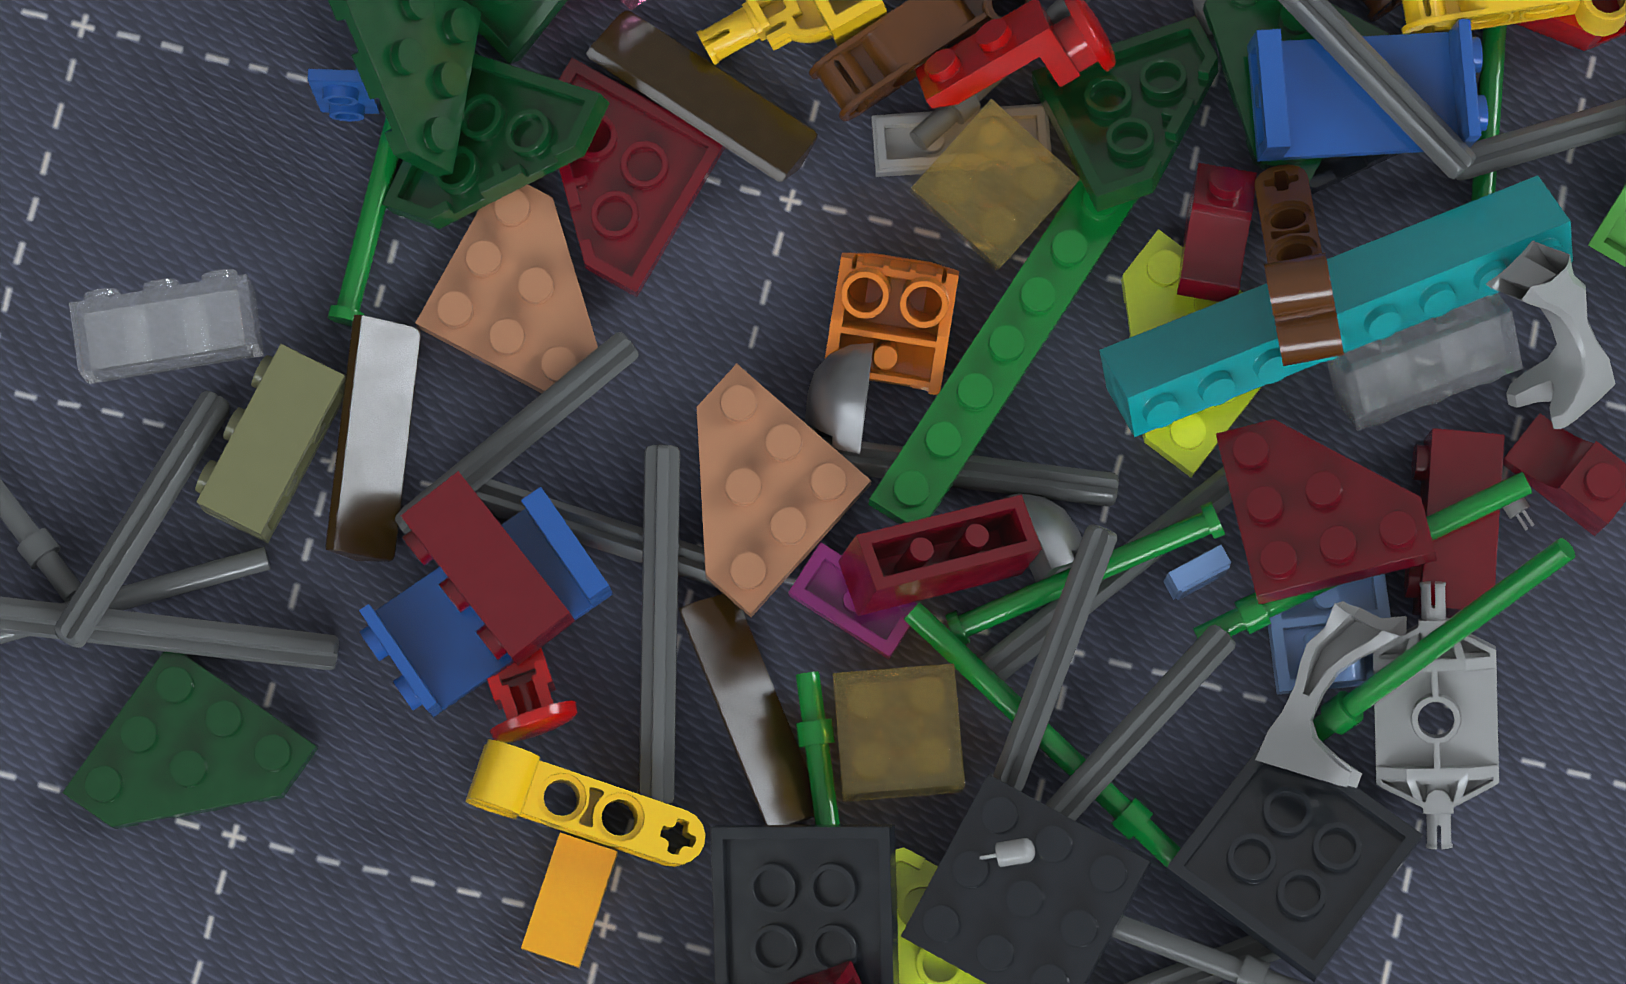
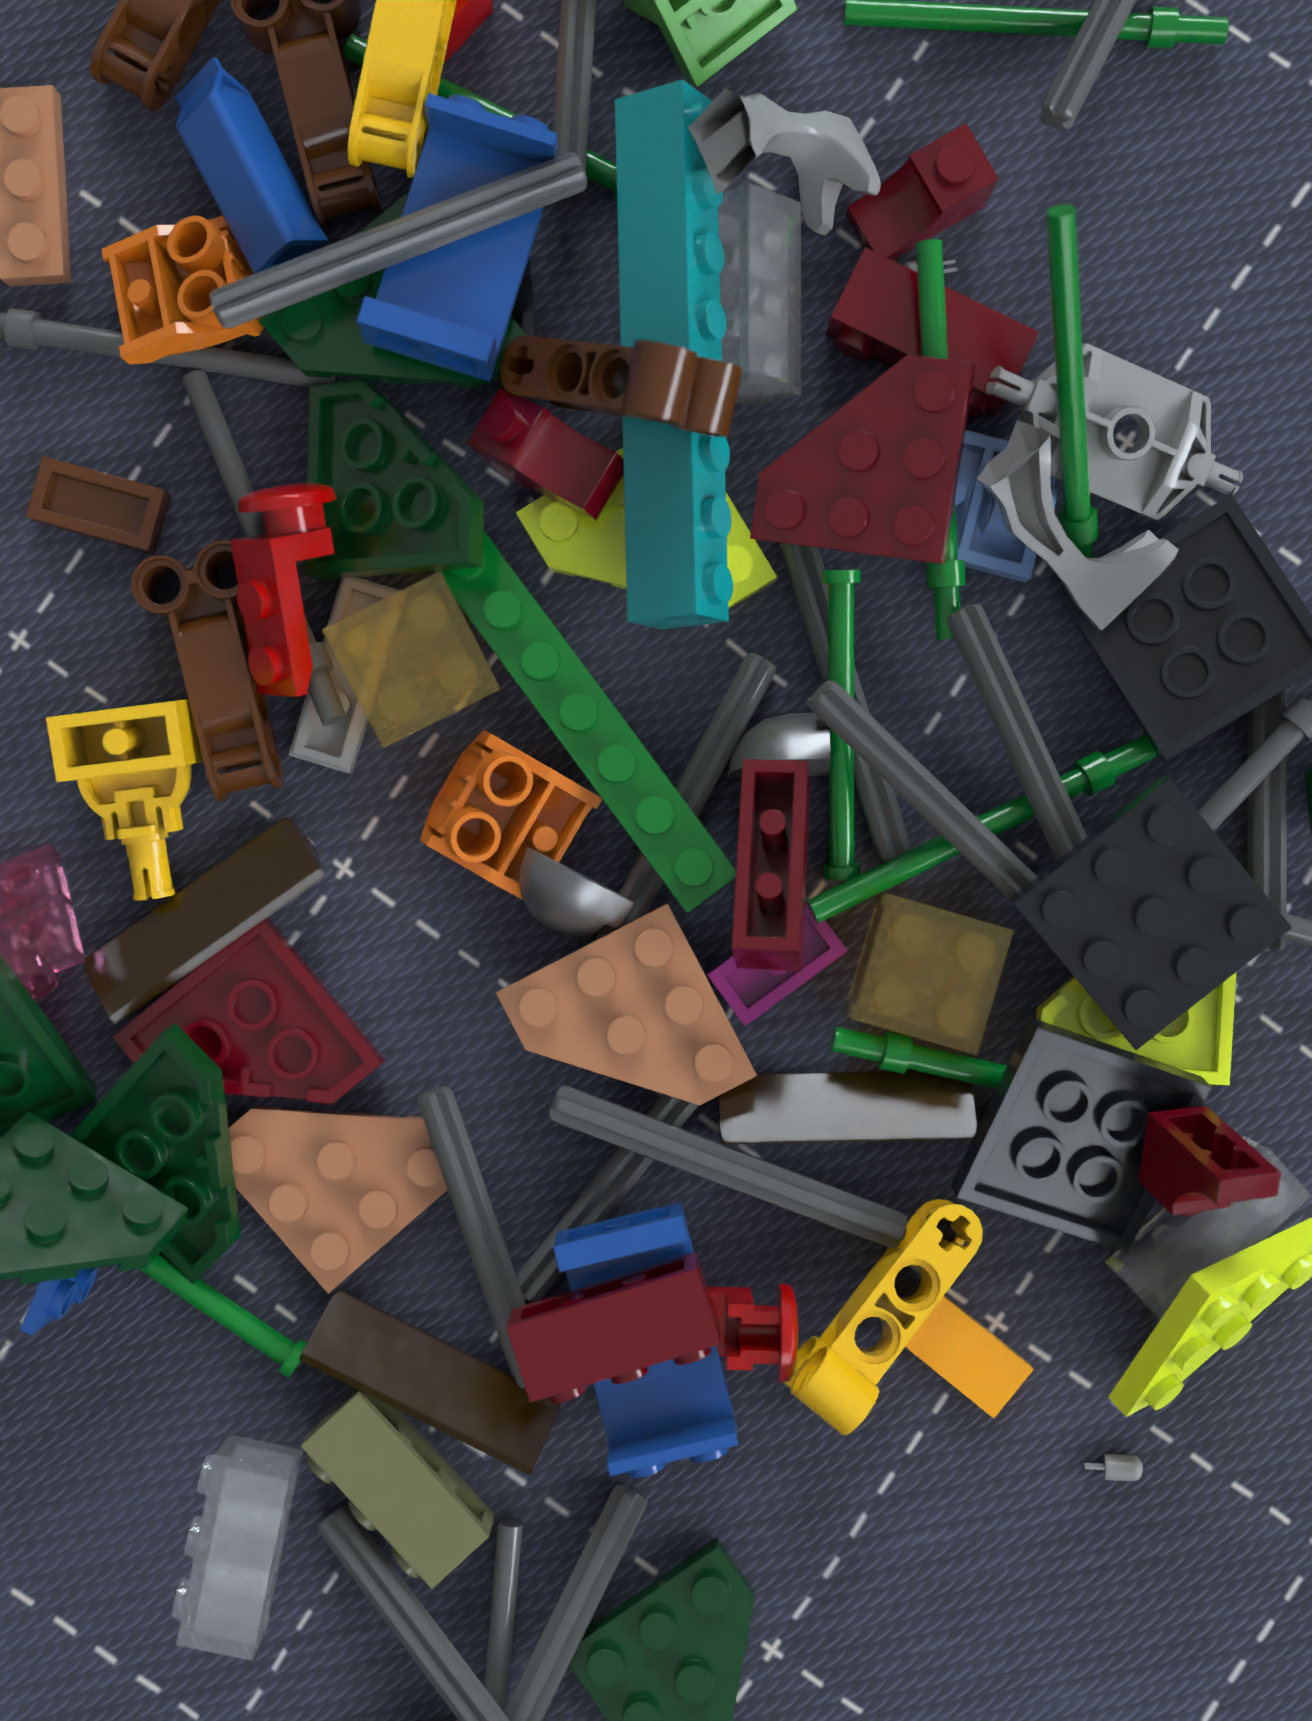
camera: 70 degrees left, 10 degrees up
(1013, 852) = (1109, 912): light grey piece -> none
(1197, 573) = (880, 611): medium blue tile -> none

